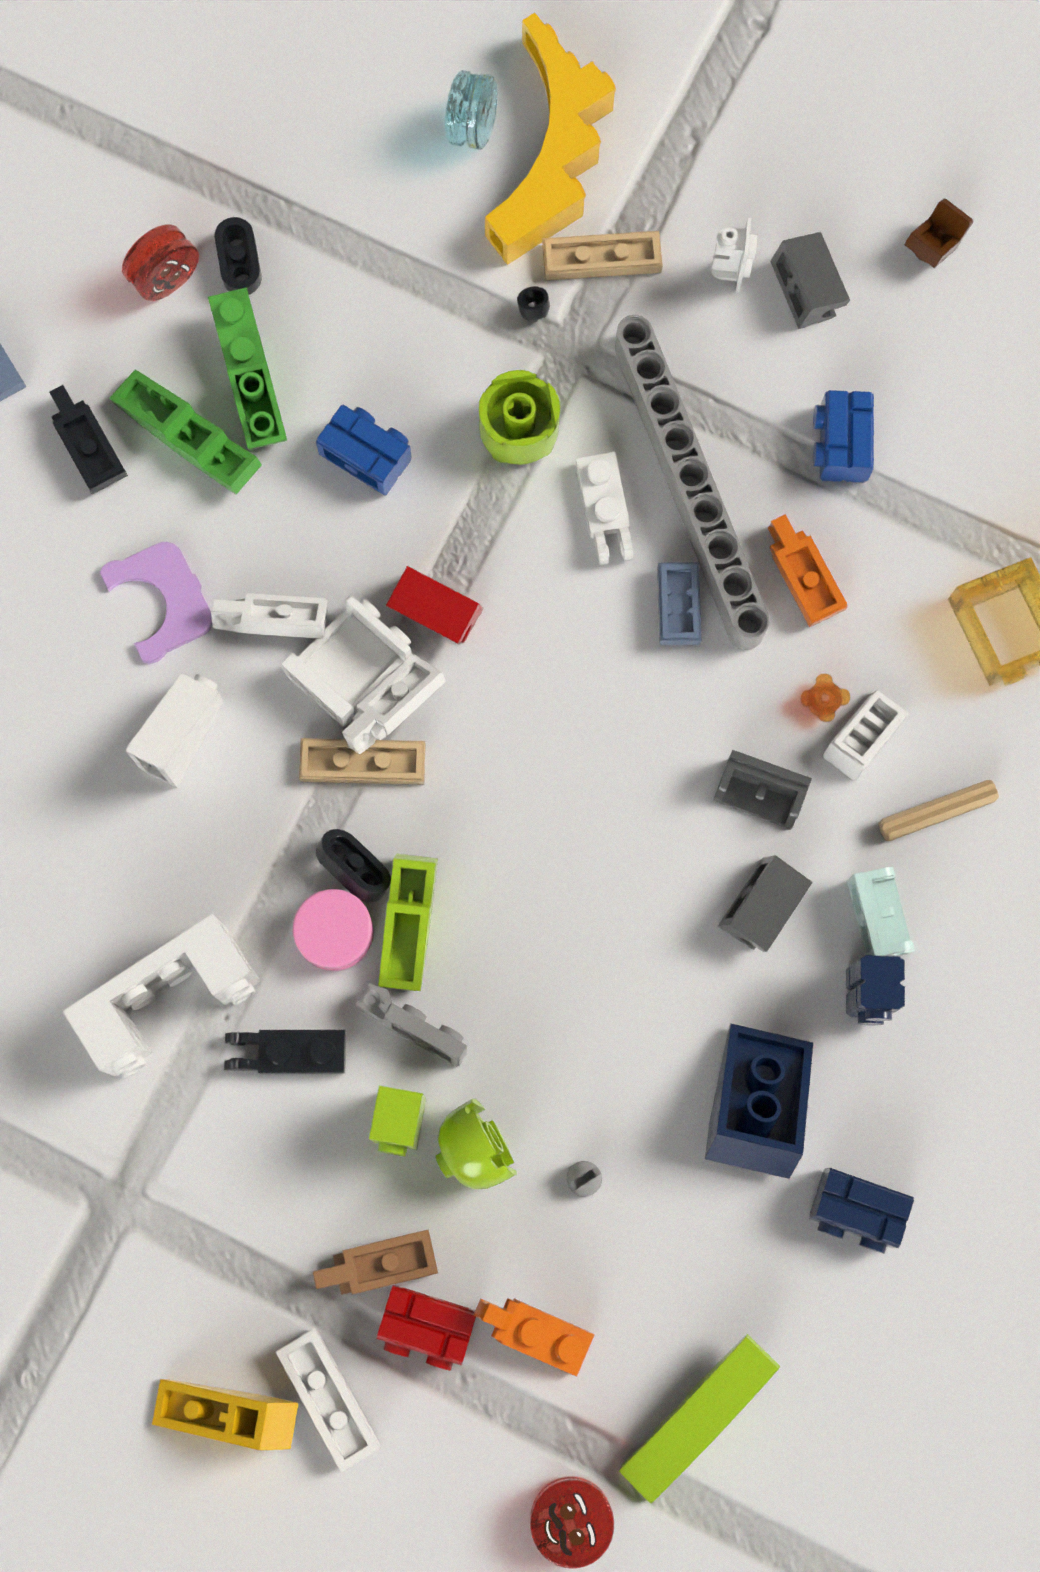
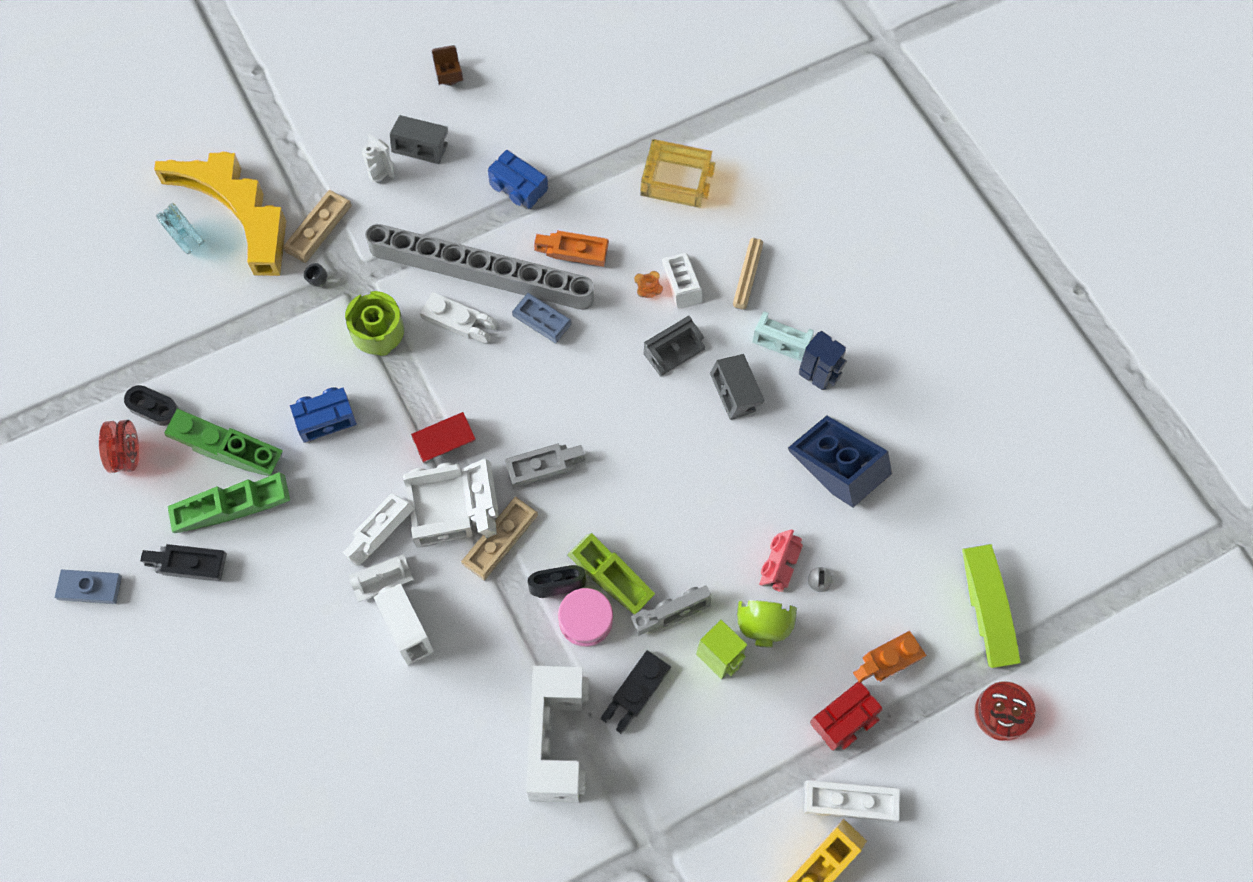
camera: 55 degrees left, 10 degrees down
(186, 610) = (302, 570): lavender piece -> none
(217, 662) = (372, 579): none -> white hinge
(380, 1264) = (794, 720): medium nougat hinge -> none
(488, 743) = (543, 463): none -> light grey hinge
(590, 1107) = (784, 548): none -> coral hinge
(862, 1209) = (932, 449): dark blue brick -> none

